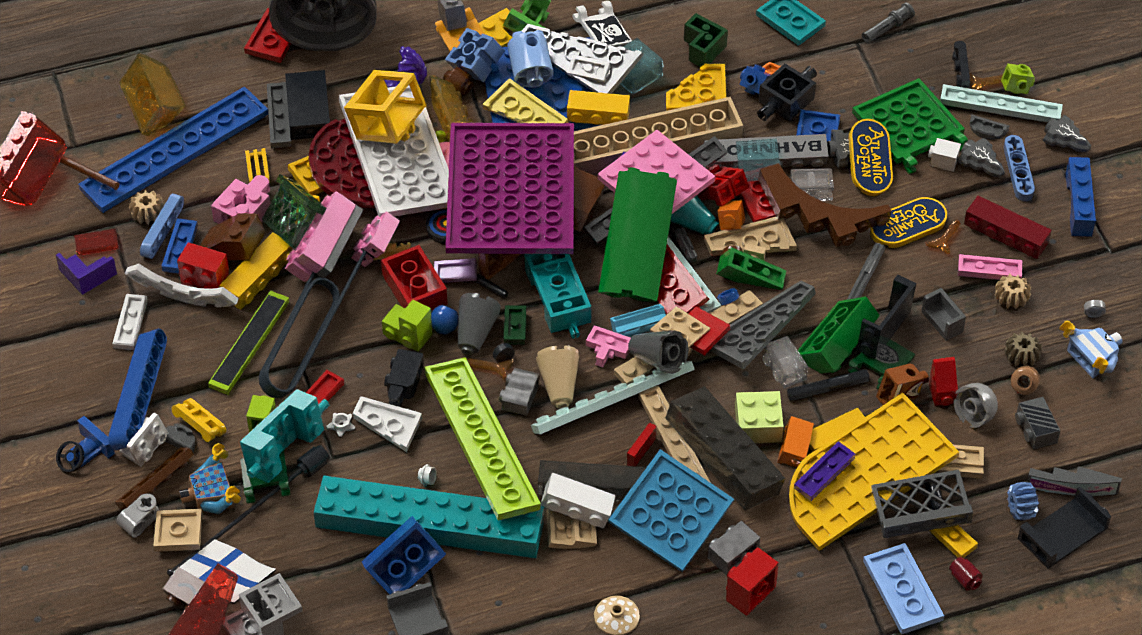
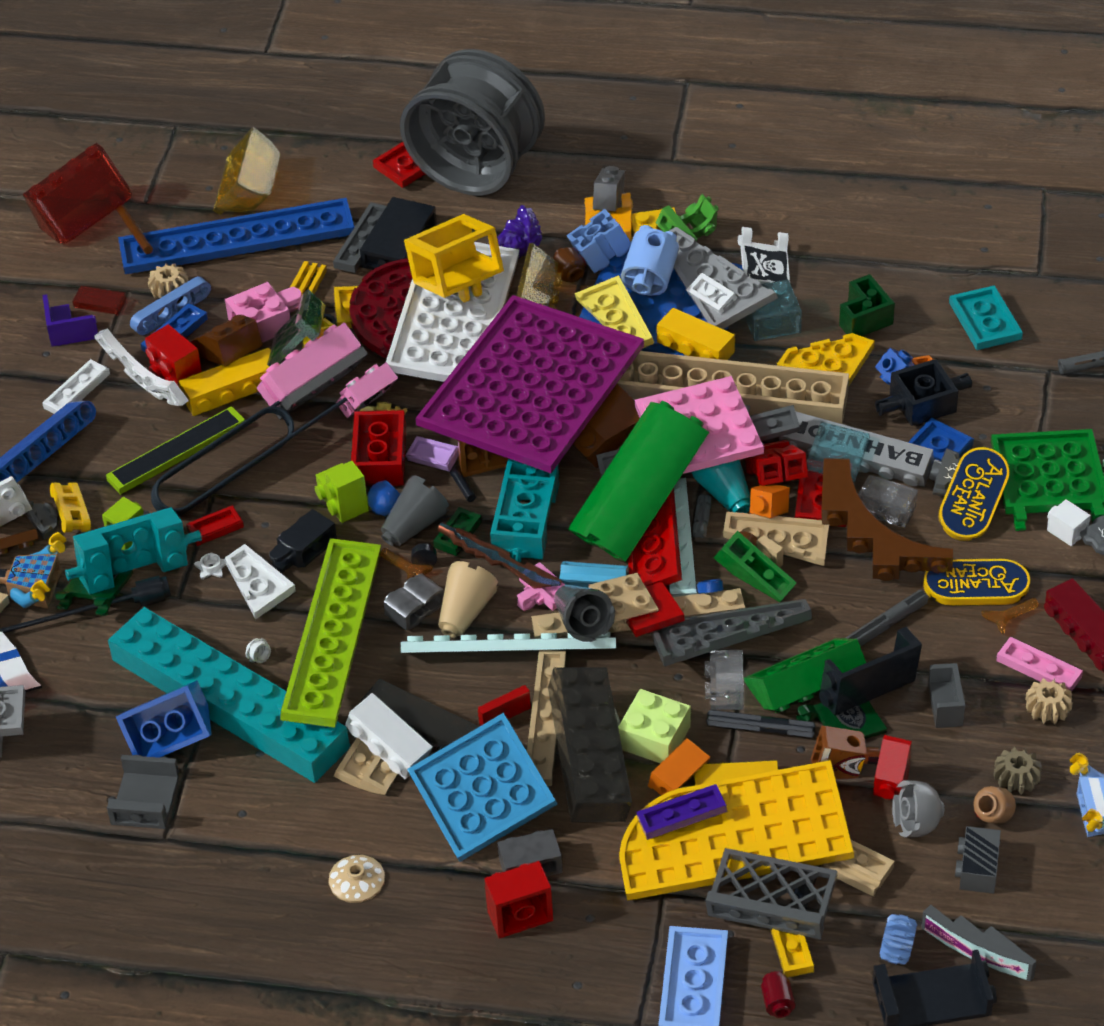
camera: 30 degrees right, 5 degrees down
(561, 333) = (496, 556): none -> copper sword

